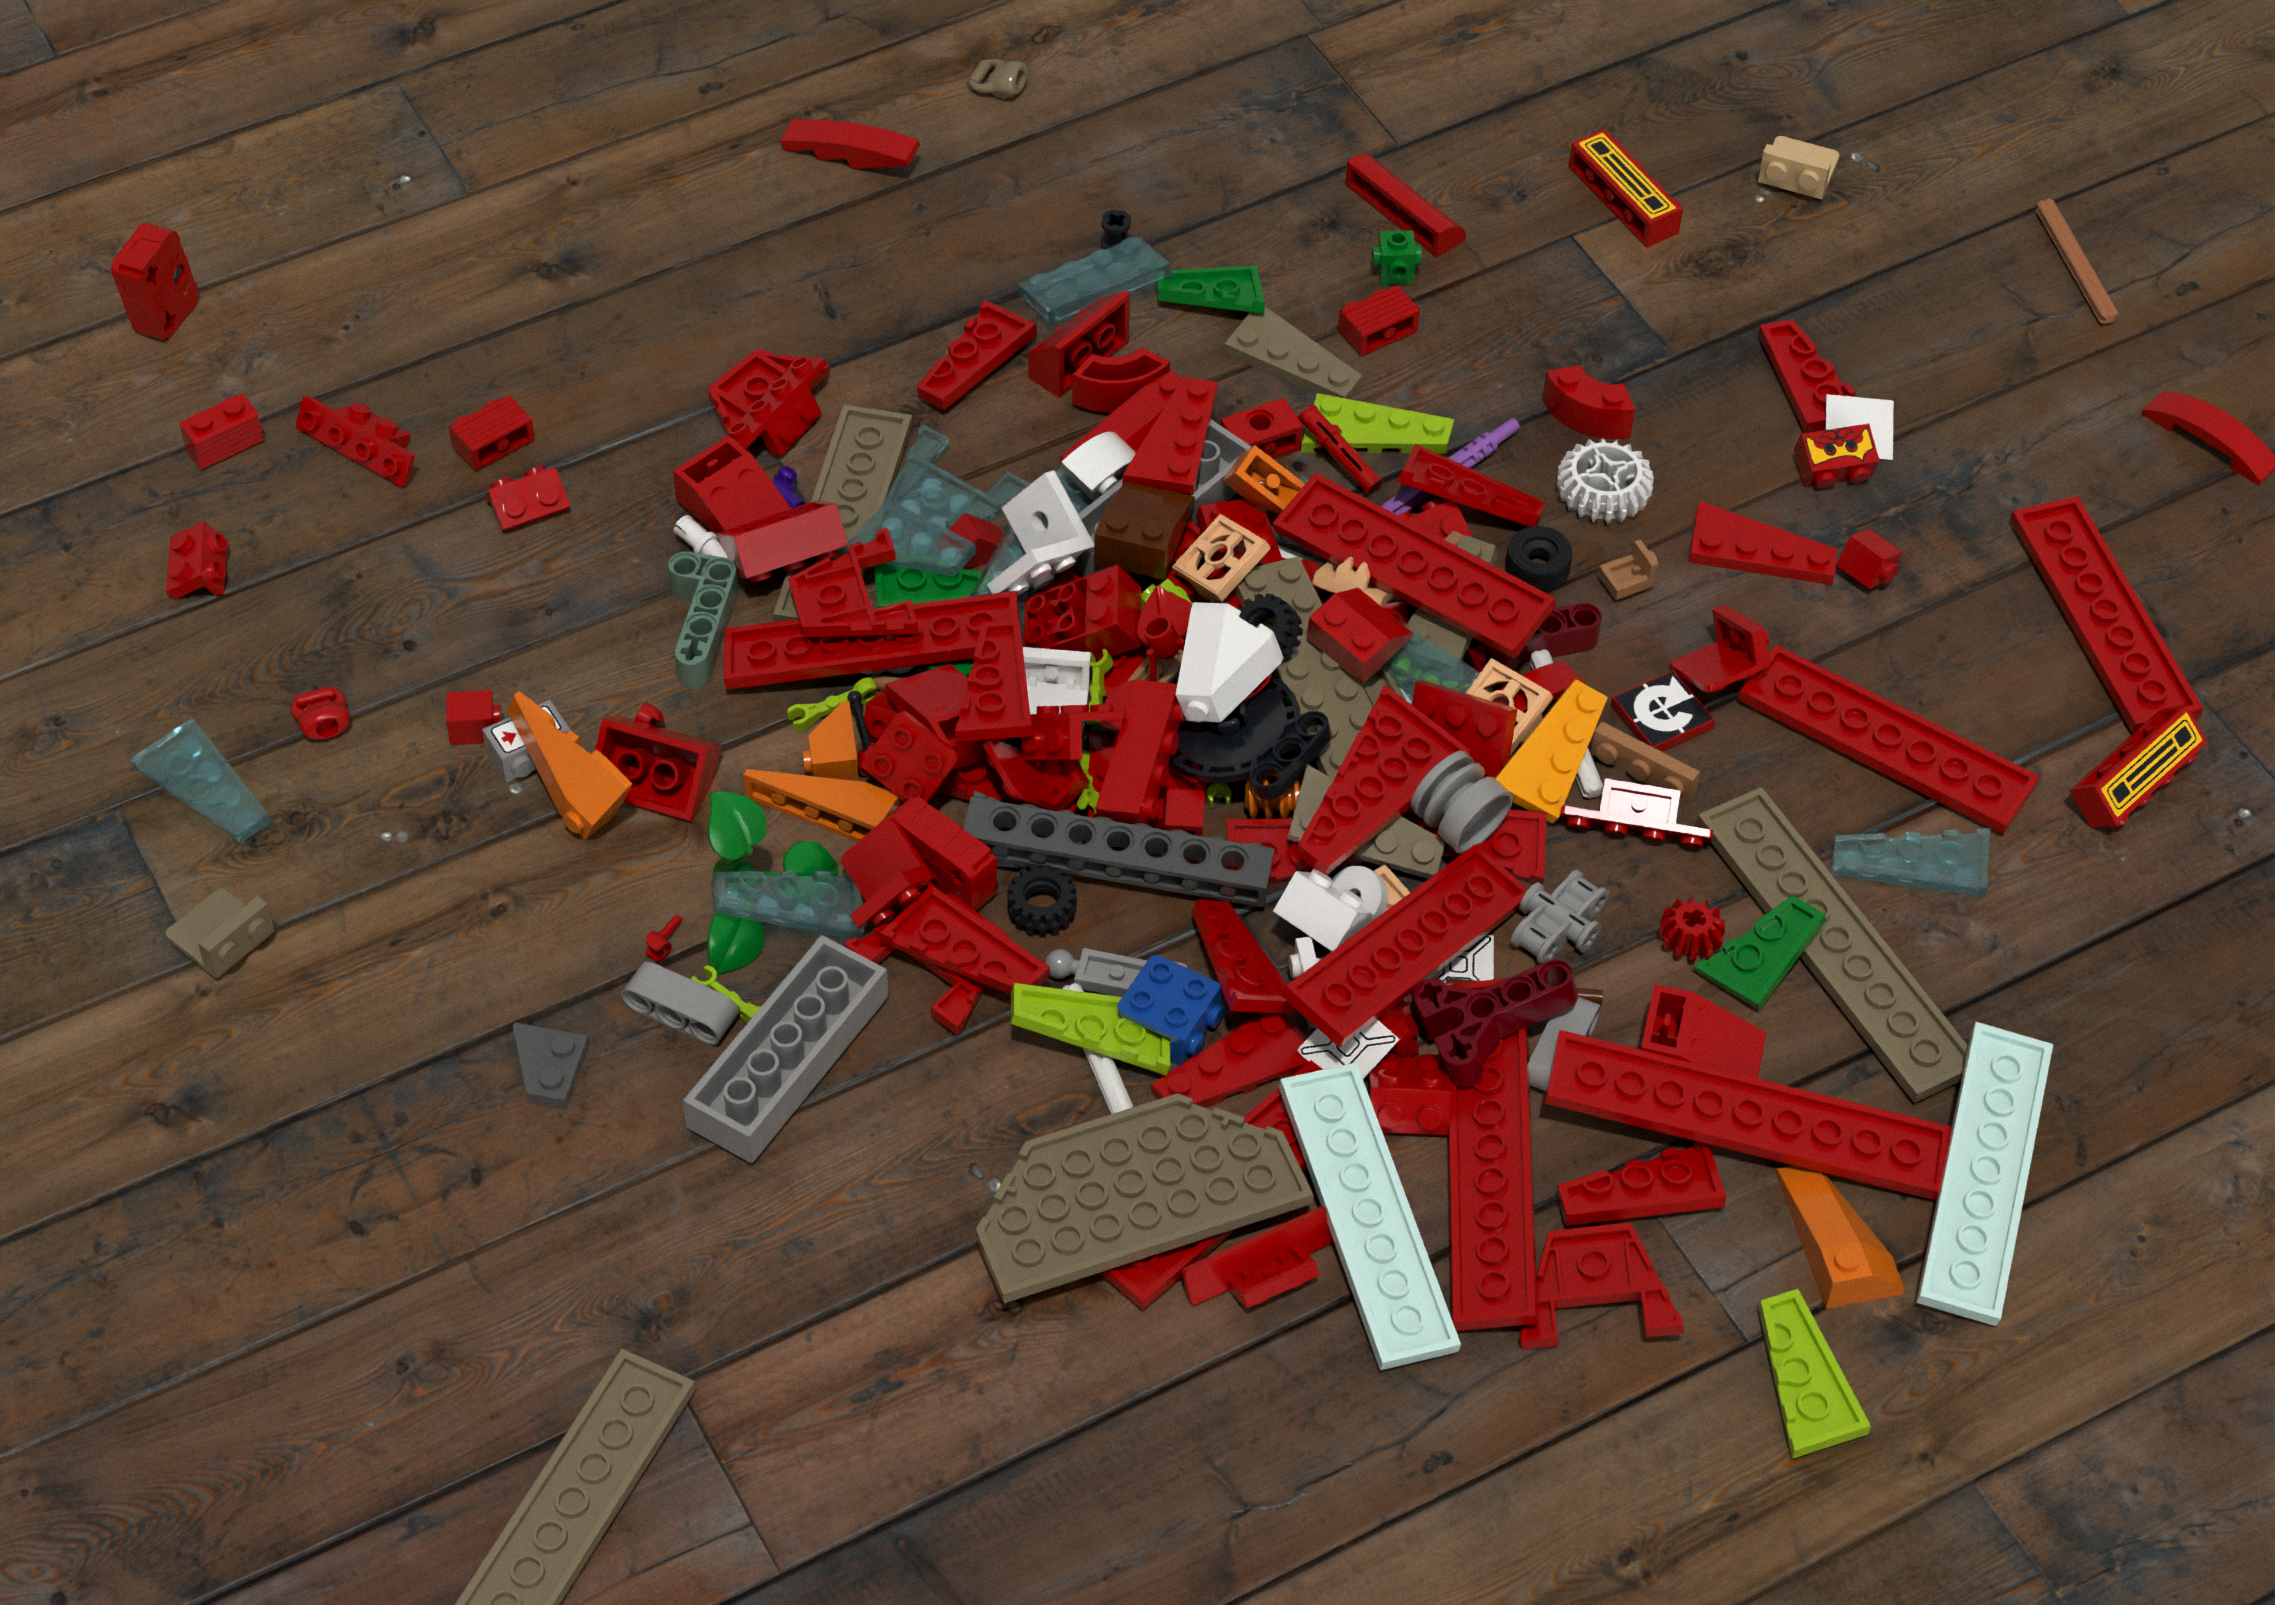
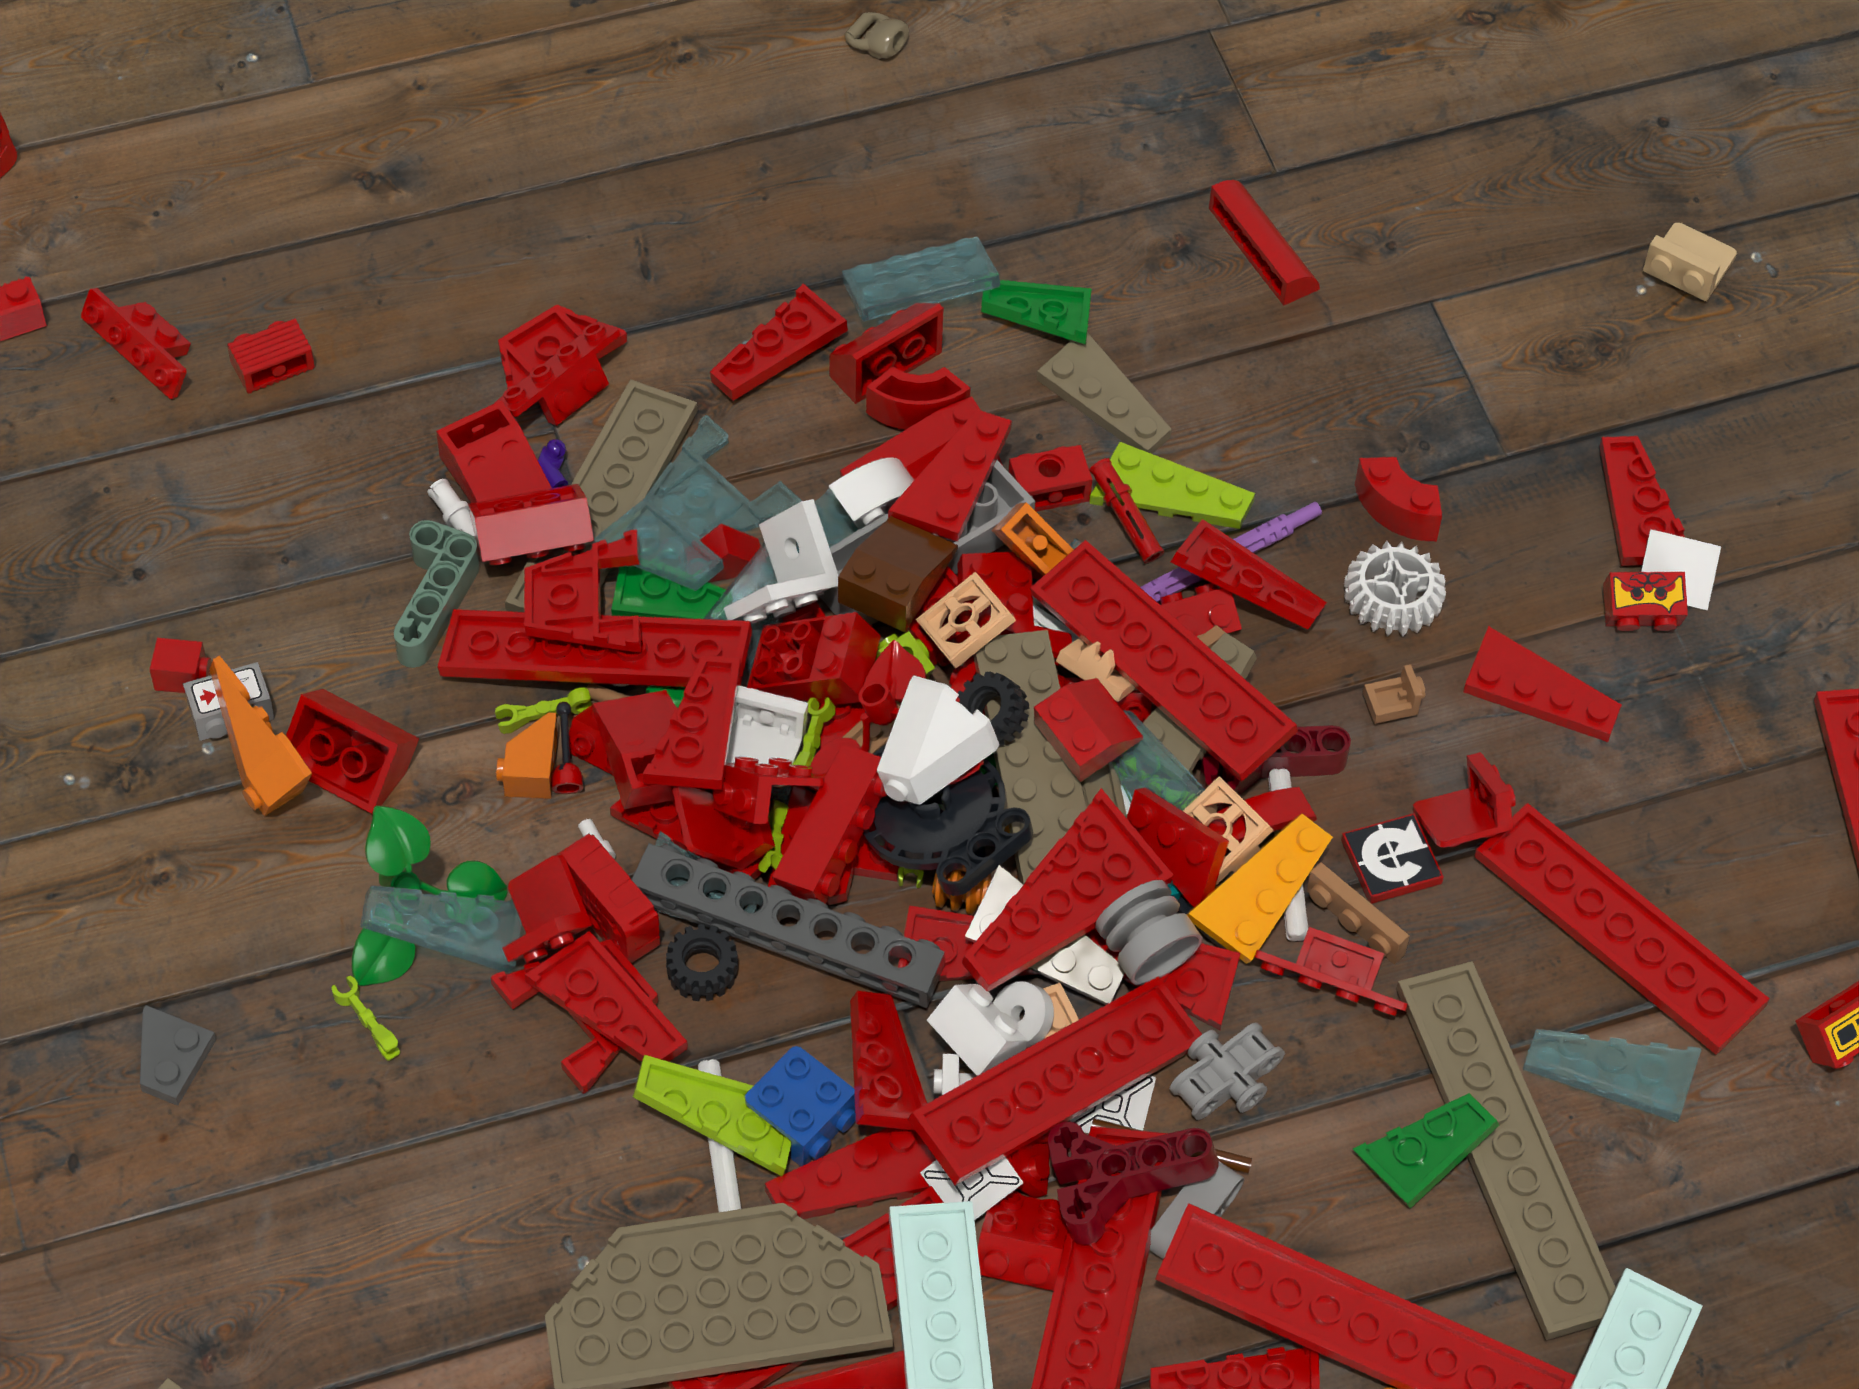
camera: 10 degrees right, 5 degrees up
(321, 715) = (33, 639): red piece -> none
(527, 498) = (290, 433): red bracket -> none
(649, 714) = (355, 693): red hinge -> none
(658, 946) = (306, 942): red hand -> none
(680, 1003) = (313, 1013): light grey beam -> none
(786, 1049) = (405, 1082): light grey brick -> none
(830, 803) = (521, 823): orange slope -> none
(858, 143) = (713, 88): red slope -> none
(910, 759) = (596, 794): red bracket -> none
(1097, 970) = (741, 1048): light grey plate -> none
(1115, 227) = (959, 224): black bush -> none
(1185, 811) = (869, 893): red brick -> none
(1378, 319) = (1203, 369): red brick -> none
(1396, 257) = (1238, 301): green brick -> none
(1541, 542) = (1298, 684): black tyre -> none
(1625, 188) = (1499, 258): red brick -> none
(1691, 929) = (1360, 1108): red gear -> none
(1701, 1032) = (1339, 1230): red slope -> none
(1870, 559) = (1650, 722): red brick -> none

